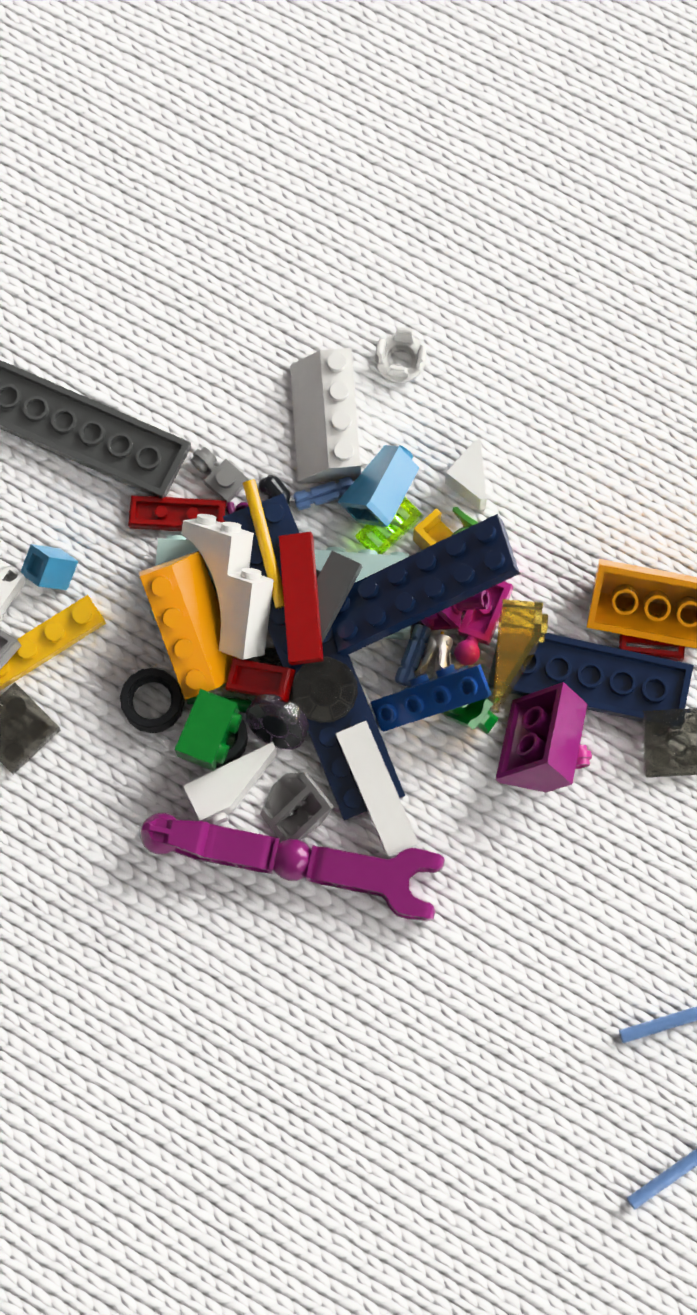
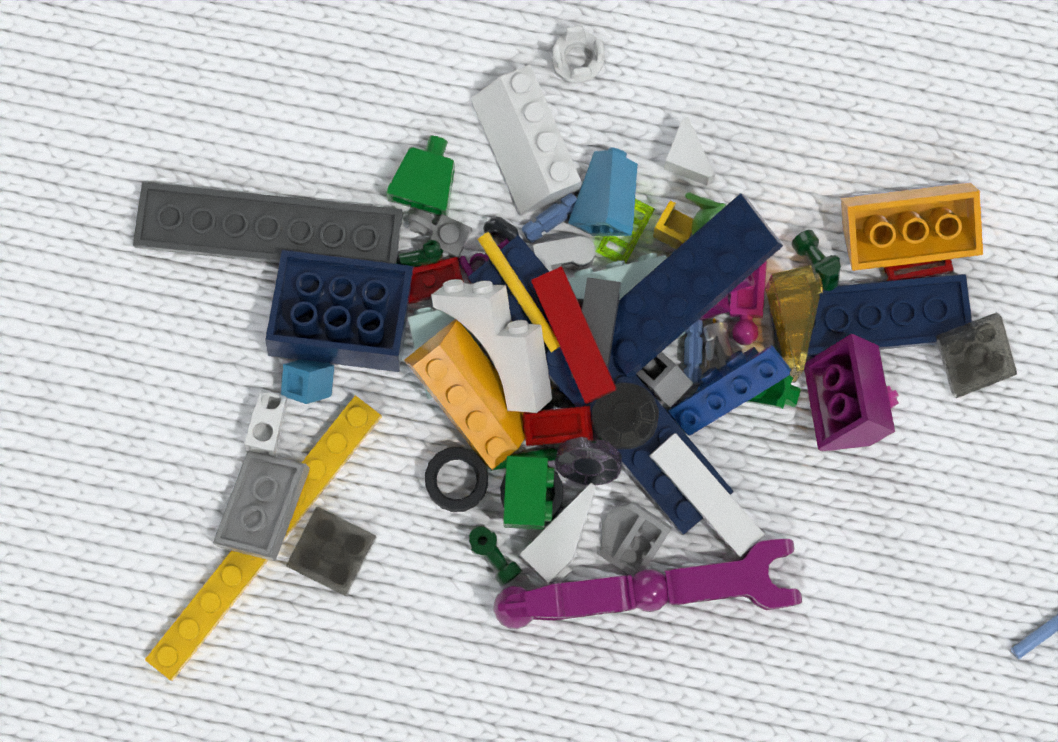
camera: 20 degrees left, 5 degrees up
(99, 514) = (339, 311): none -> dark blue slope
(156, 768) = (485, 545): none -> dark green leg
(200, 490) = (430, 254): none -> dark green arm
(220, 422) = (424, 179): none -> green torso
(326, 528) = (569, 253): none -> white leg
(375, 669) = (665, 379): none -> light grey slope
(560, 617) = (828, 267): none -> dark green leg

